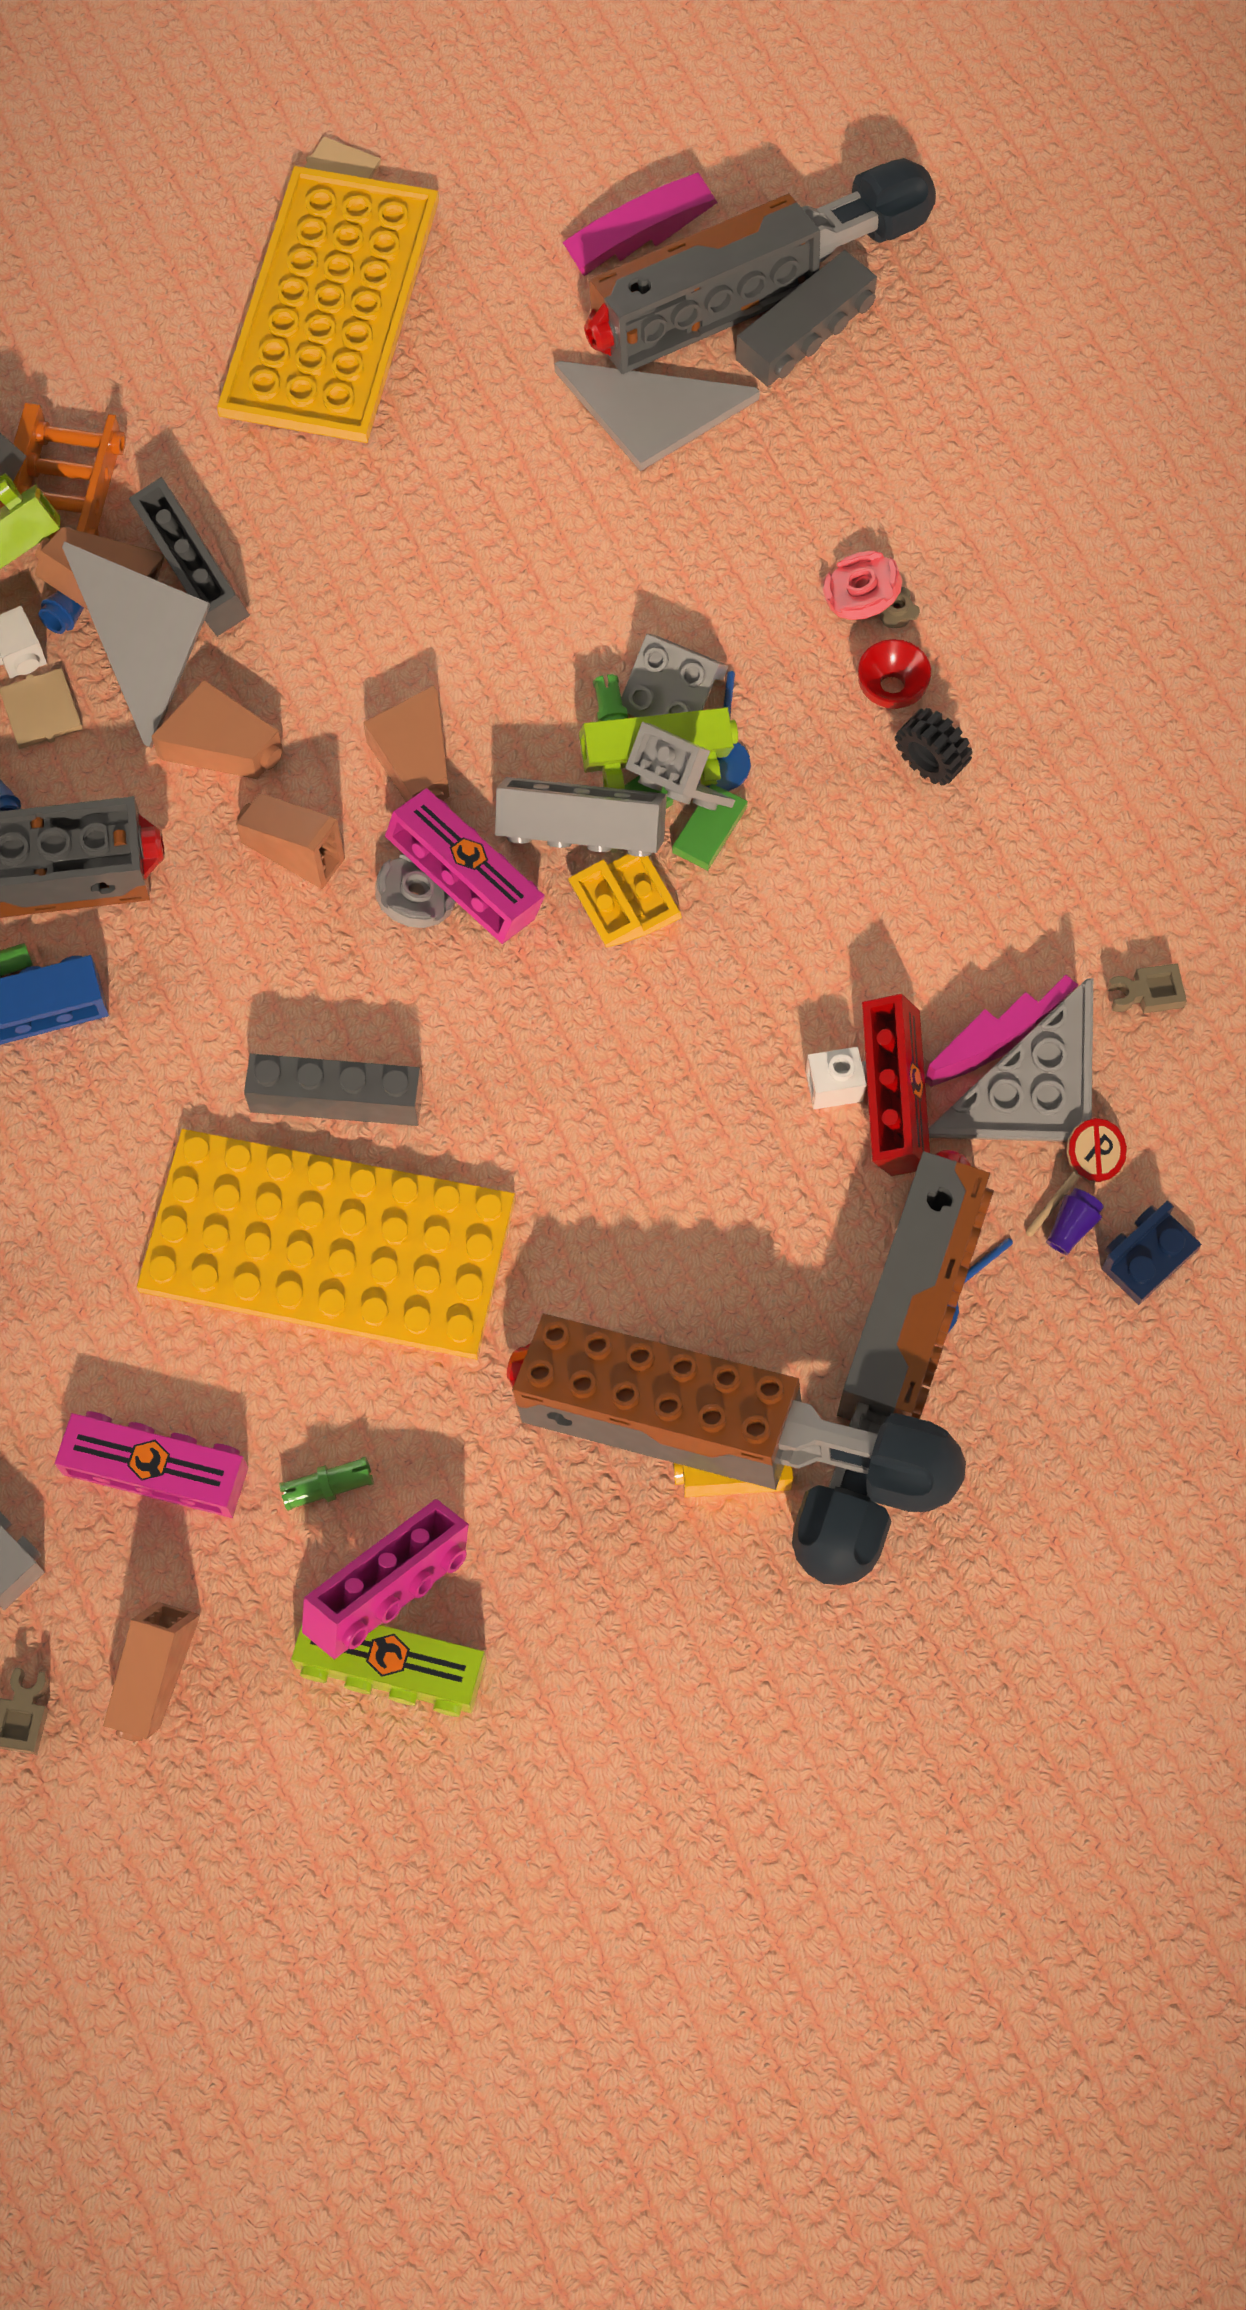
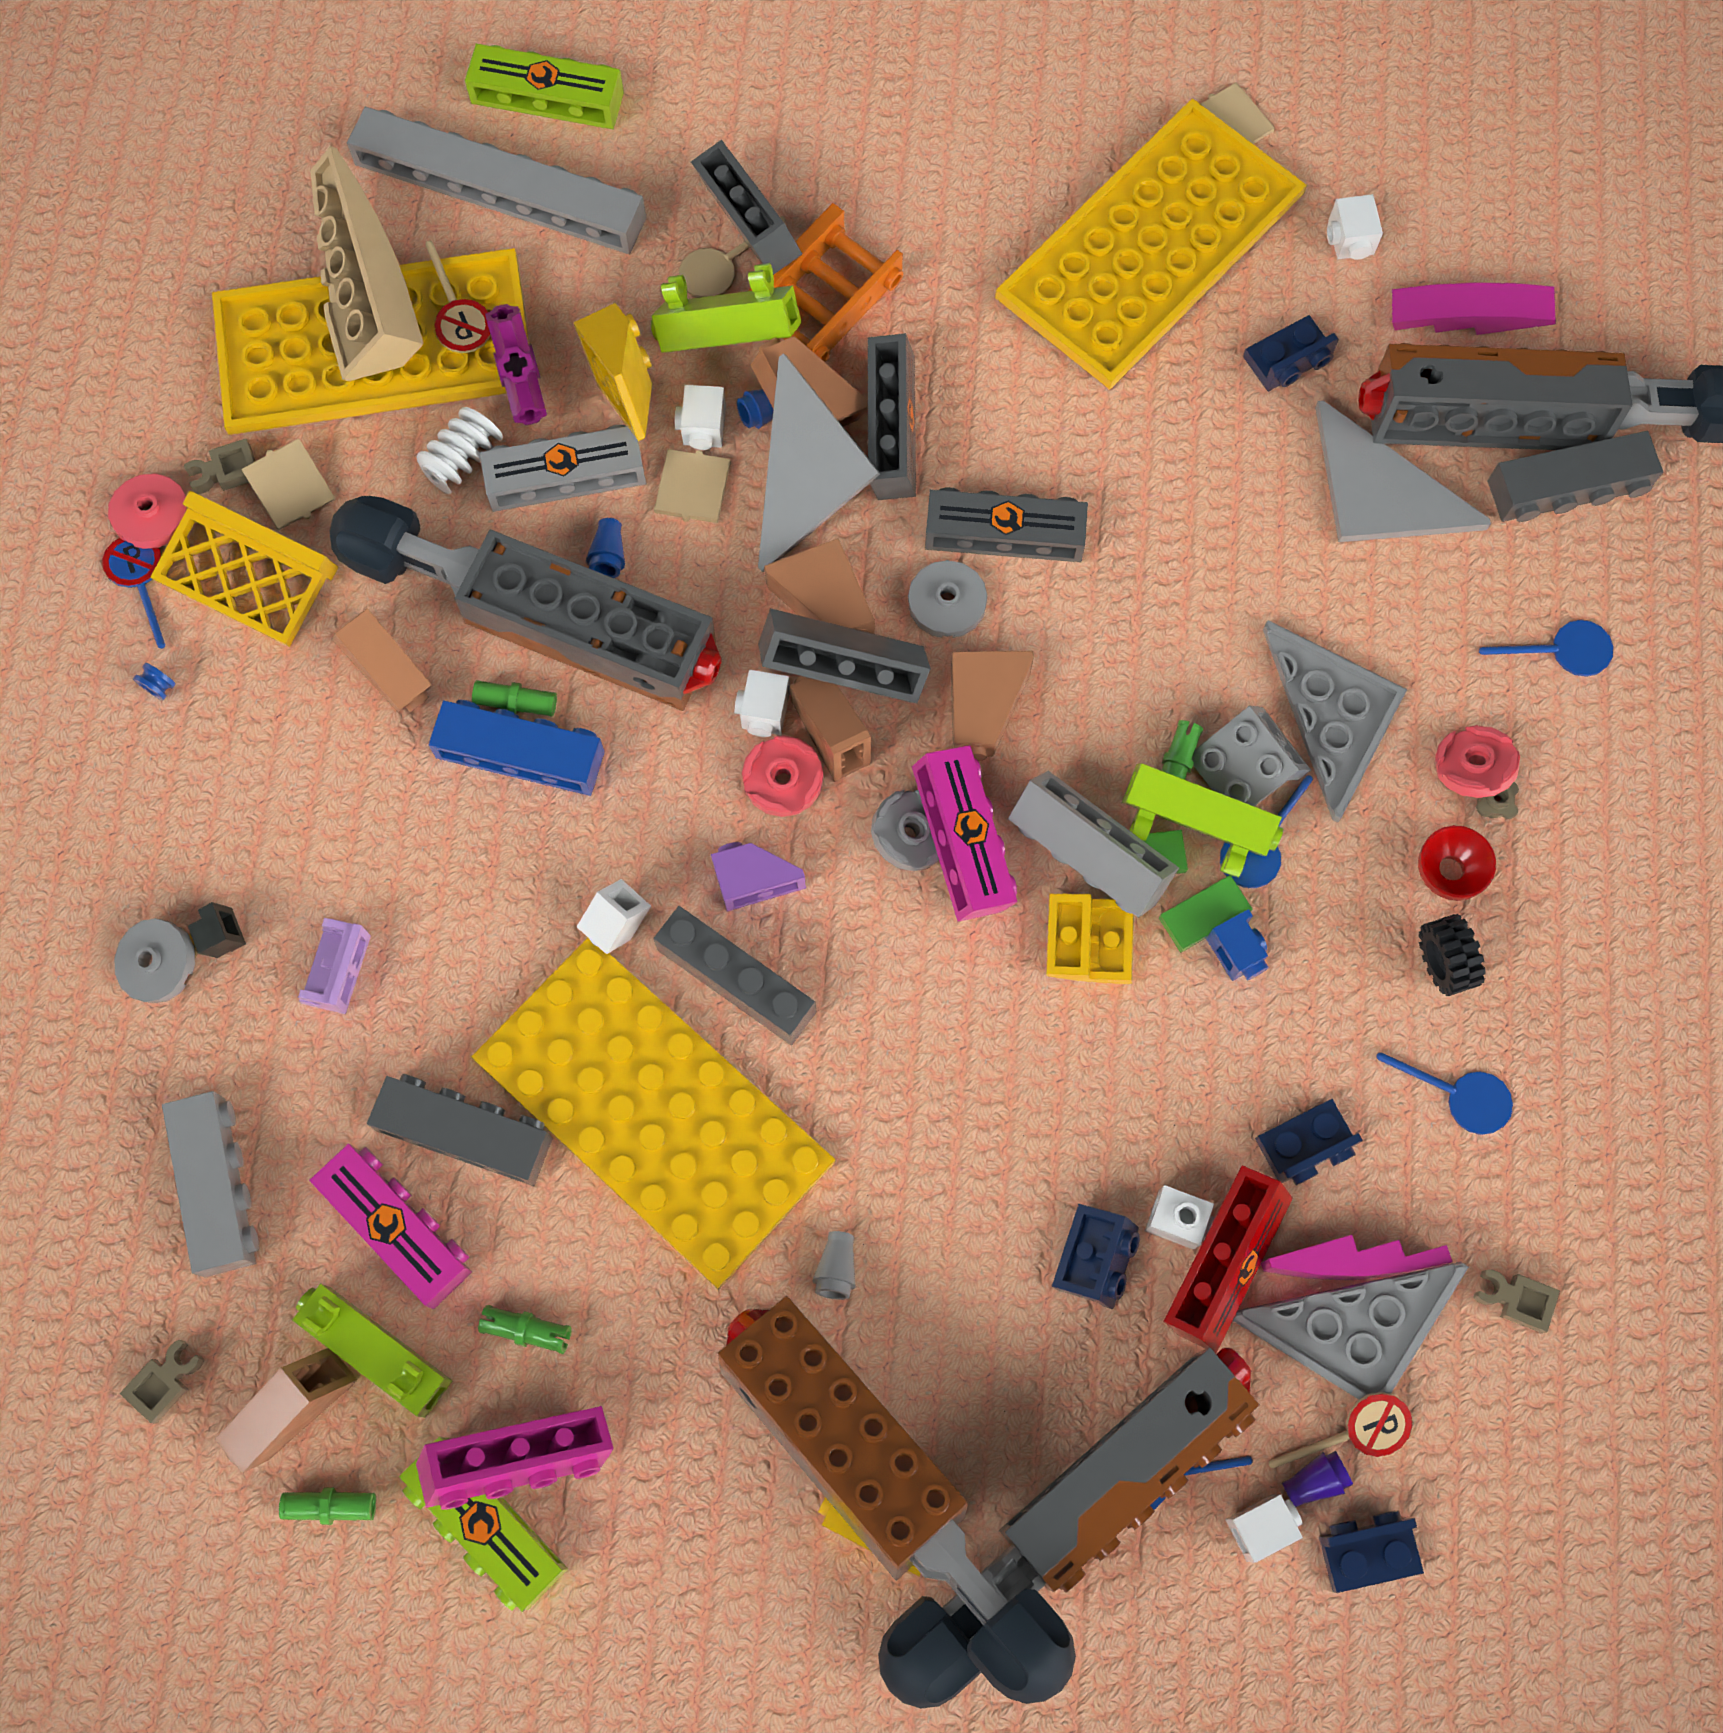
camera: 30 degrees right, 5 degrees up
(165, 1351) = (460, 1129): none -> dark grey brick
(195, 1098) = (613, 916): none -> white brick
(198, 1576) = (371, 1349): none -> lime brick
(219, 853) = (763, 703): none -> white brick
(239, 1729) = (327, 1506): none -> bright green pin
(270, 771) = (843, 656): none -> dark grey brick
(271, 888) = (776, 757): none -> coral plate
(299, 999) = (753, 875): none -> medium lavender slope
(334, 702) = (942, 616): none -> light grey plate
(345, 598) = (1006, 525): none -> dark grey brick
(500, 206) = (1354, 227): none -> white brick
(506, 336) = (1290, 352): none -> dark blue bracket
(570, 1281) = (836, 1267): none -> light grey cone
(675, 764) = (1198, 850): light grey bracket -> none
(721, 605) = (1337, 710): none -> light grey tile
(754, 836) = (1239, 947): none -> blue brick
(785, 1146) = (1097, 1256): none -> dark blue bracket
(890, 454) = (1578, 647): none -> blue piece
(906, 961) = (1308, 1141): none -> dark blue bracket
(1022, 856) = (1475, 1100): none -> blue piece
(1053, 1279) = (1265, 1527): none -> white brick

